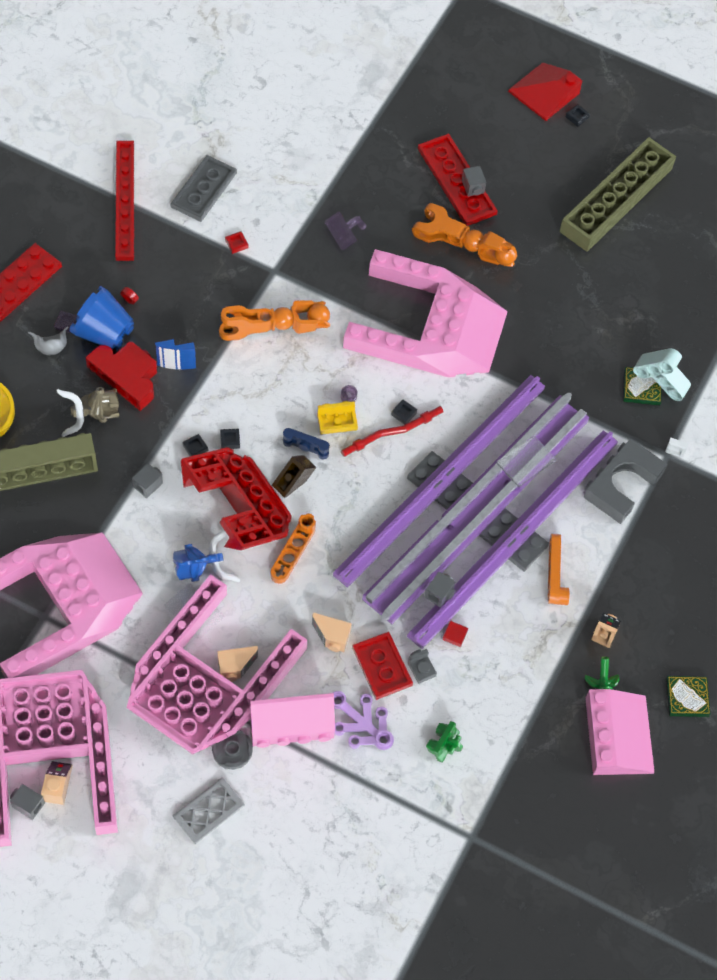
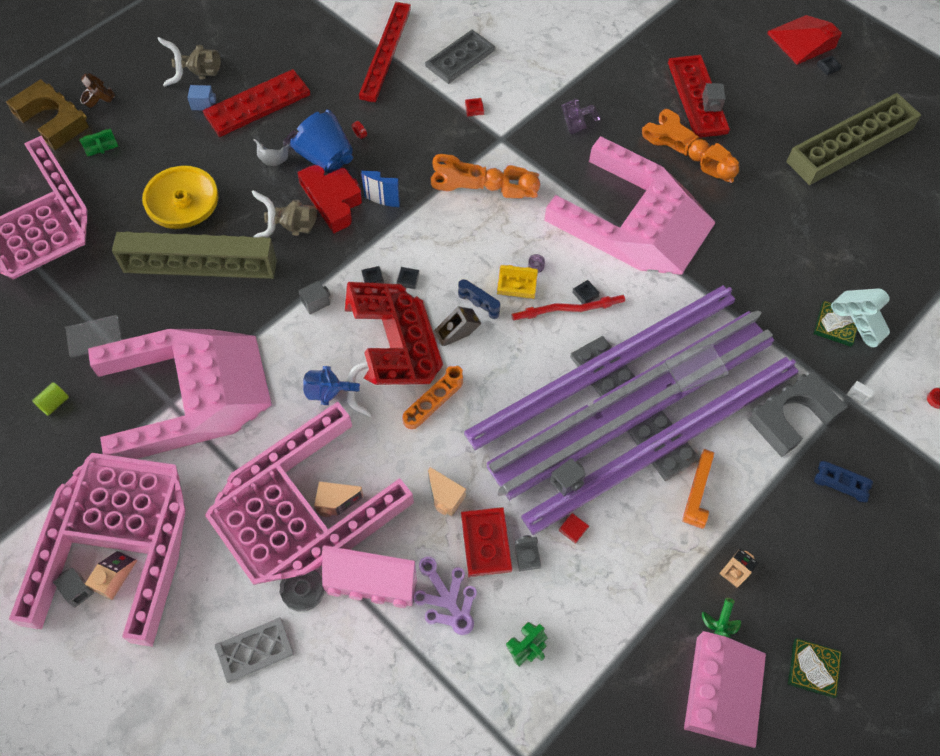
camera: 20 degrees right, 0 degrees up
(678, 531) = (844, 481): none -> dark blue plate

